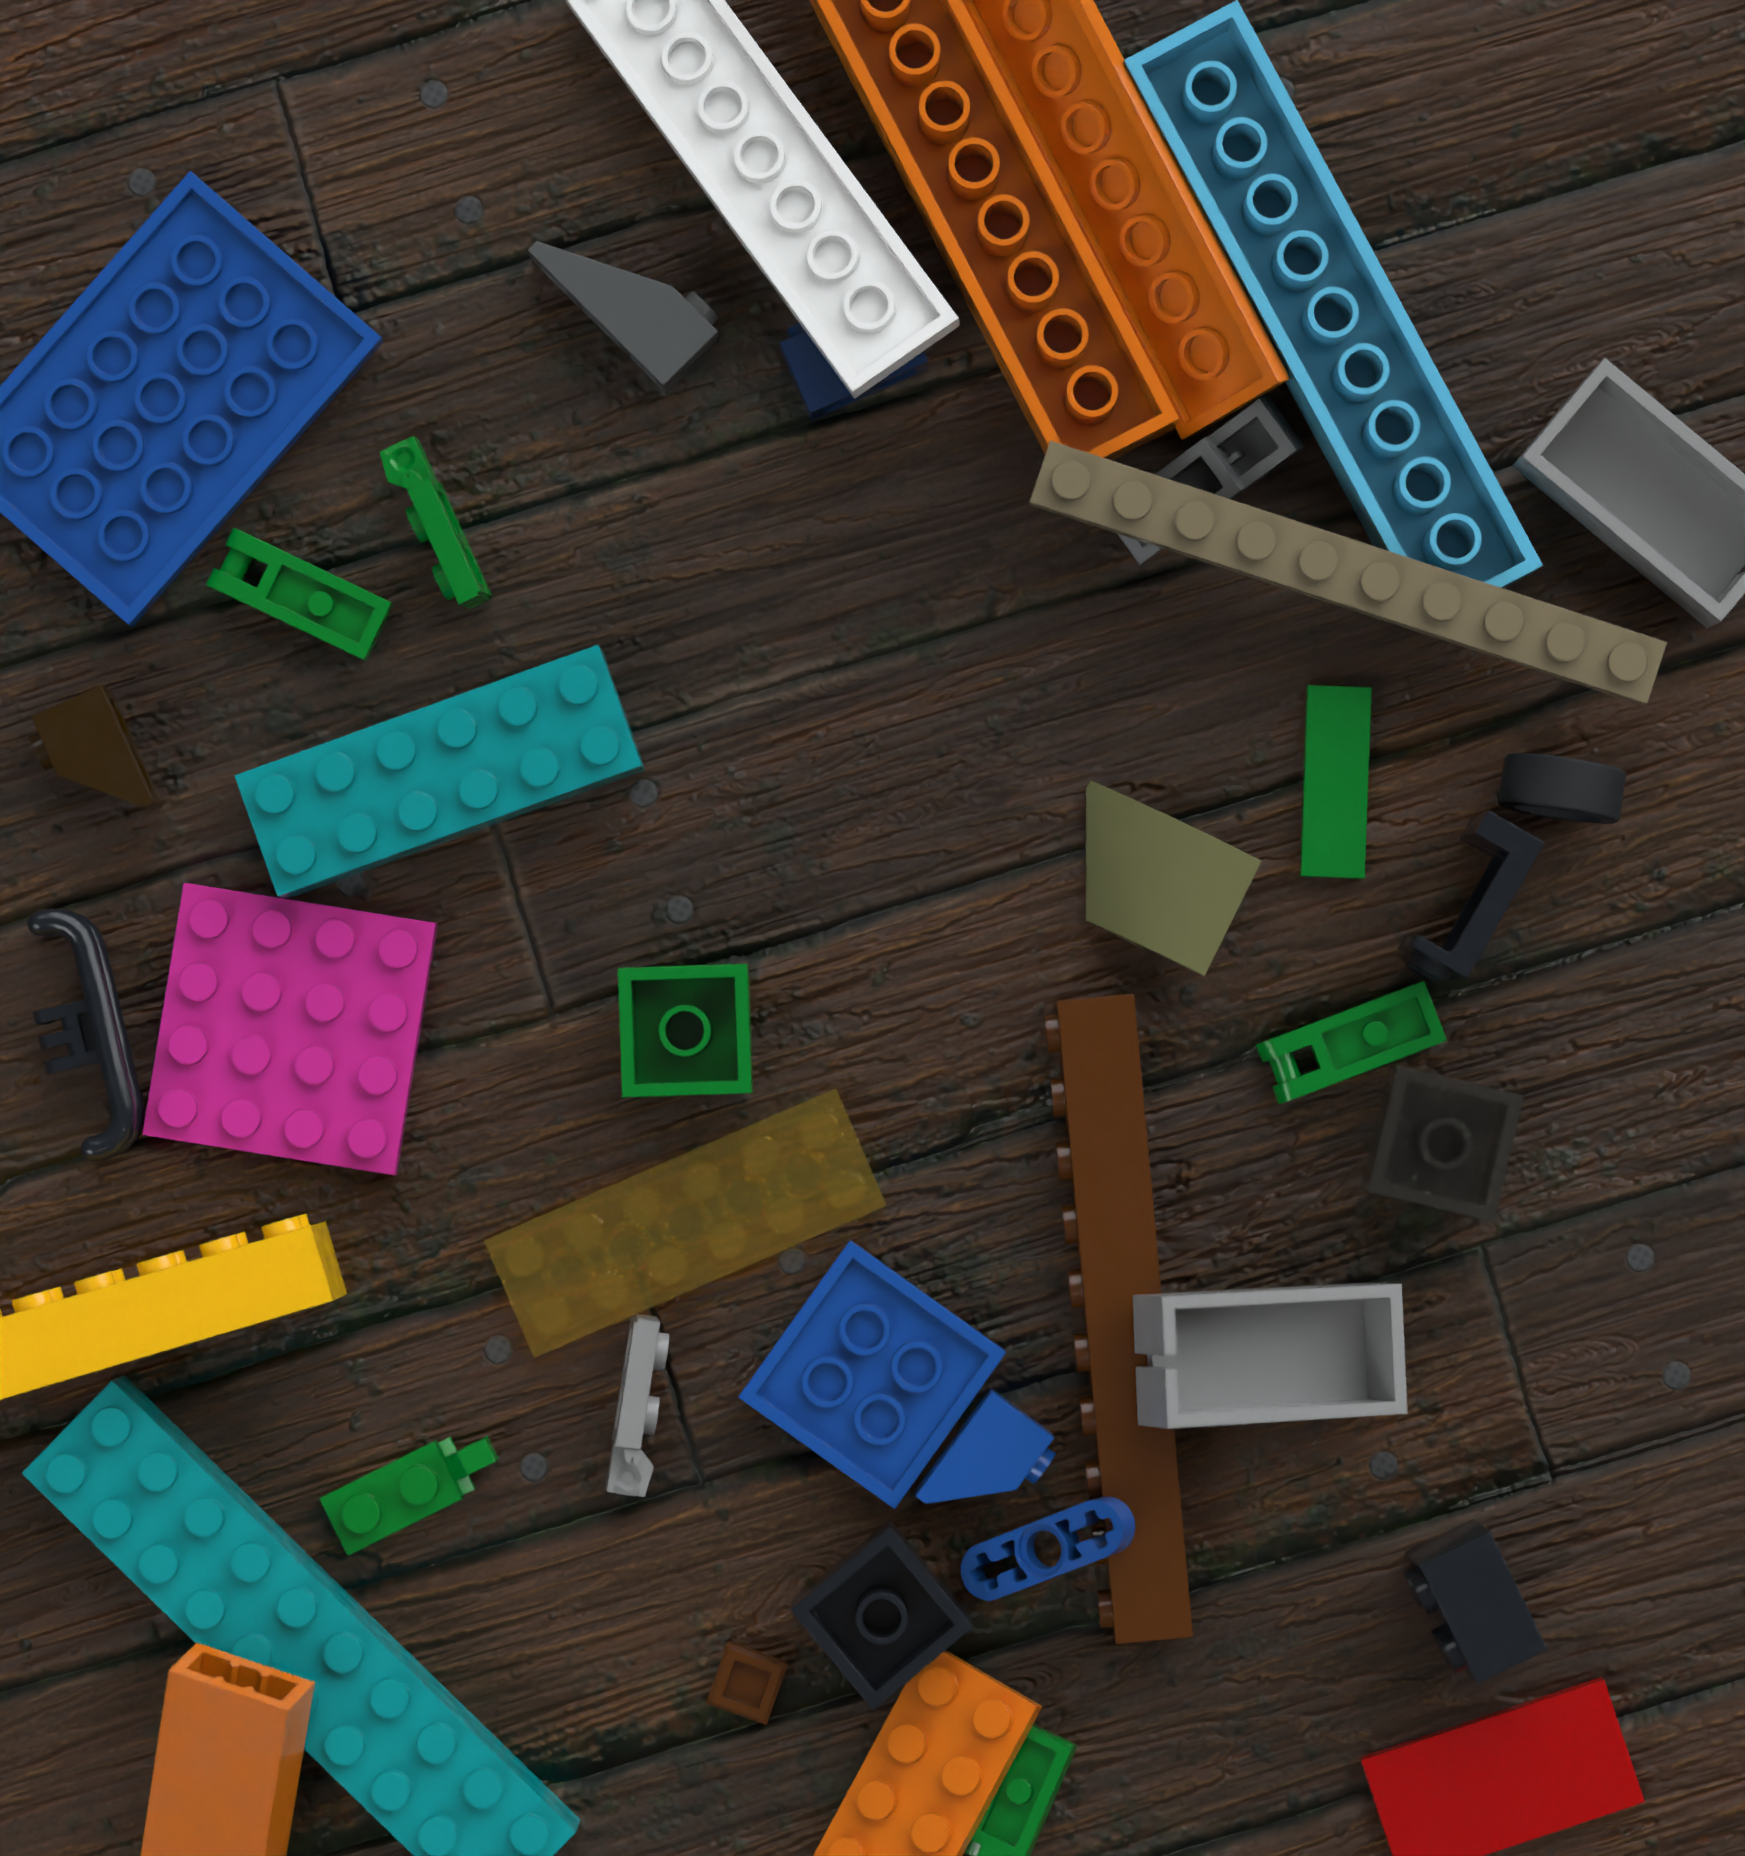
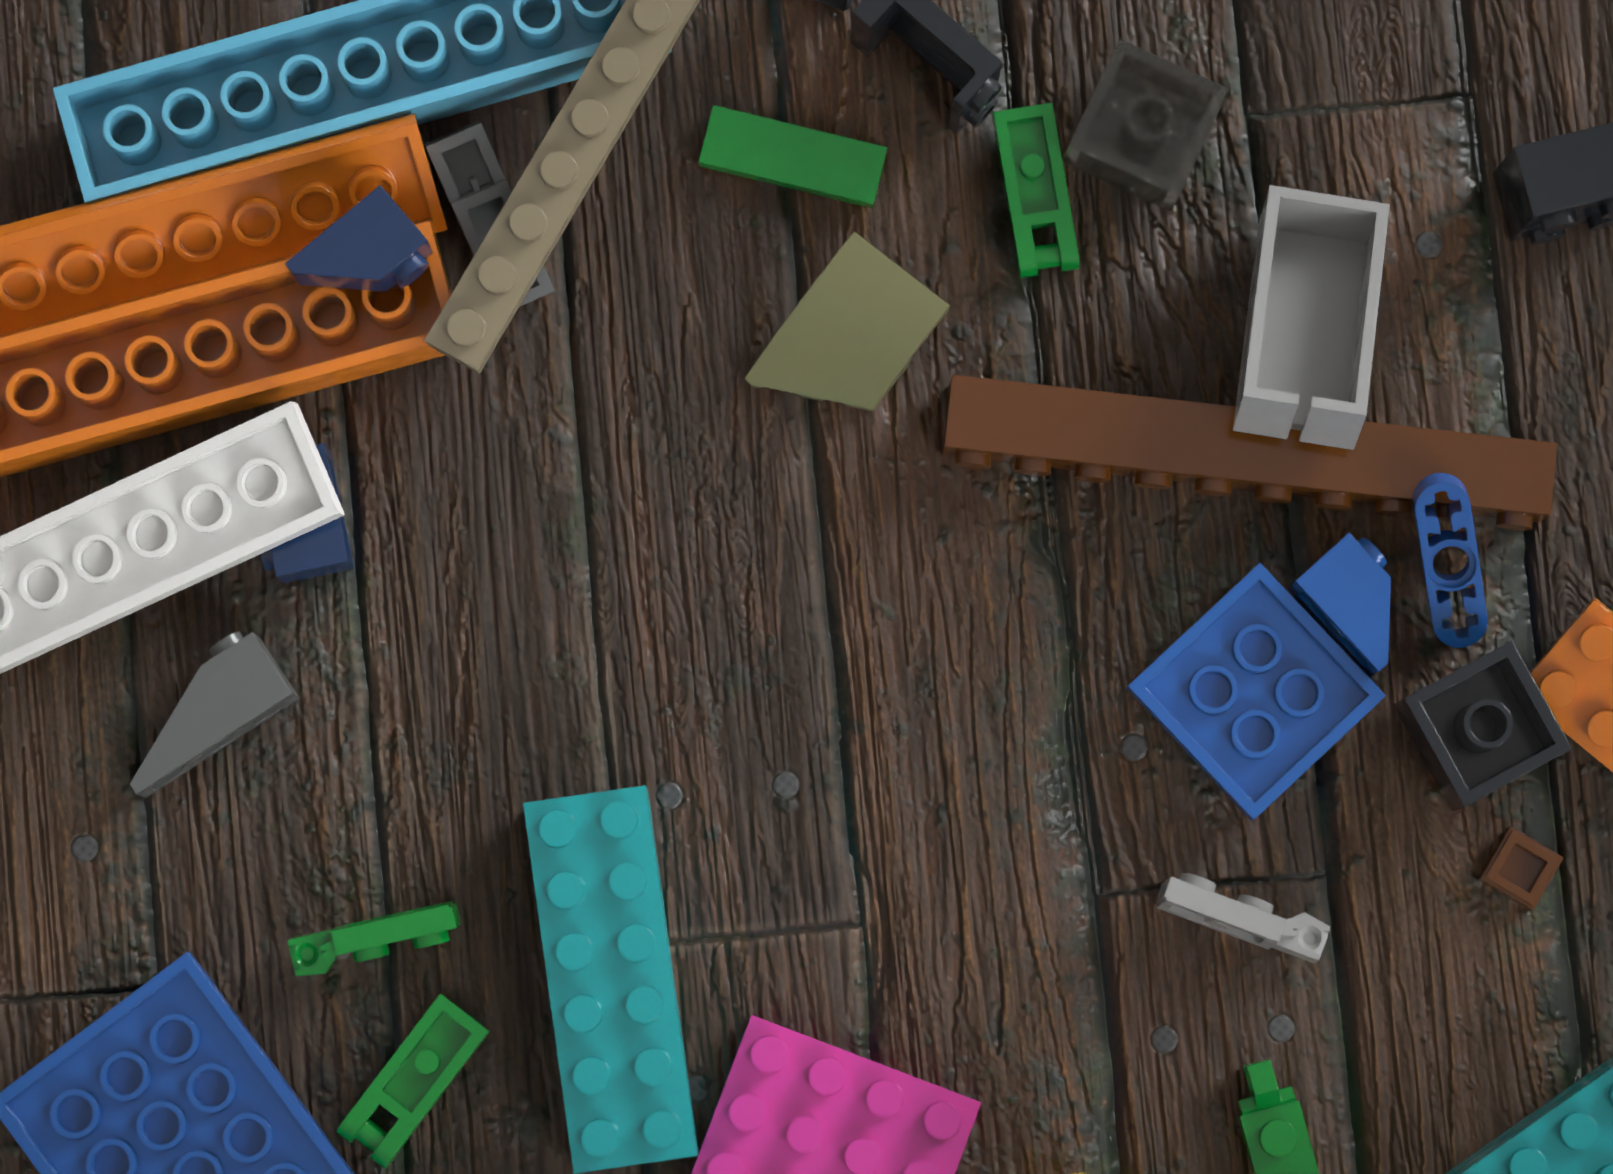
camera: 80 degrees left, 5 degrees down
(685, 1030) = (902, 796): green brick -> none
(685, 1223) = (1080, 838): clear yellow plate -> none
(1131, 359) = (364, 249): none -> dark blue slope

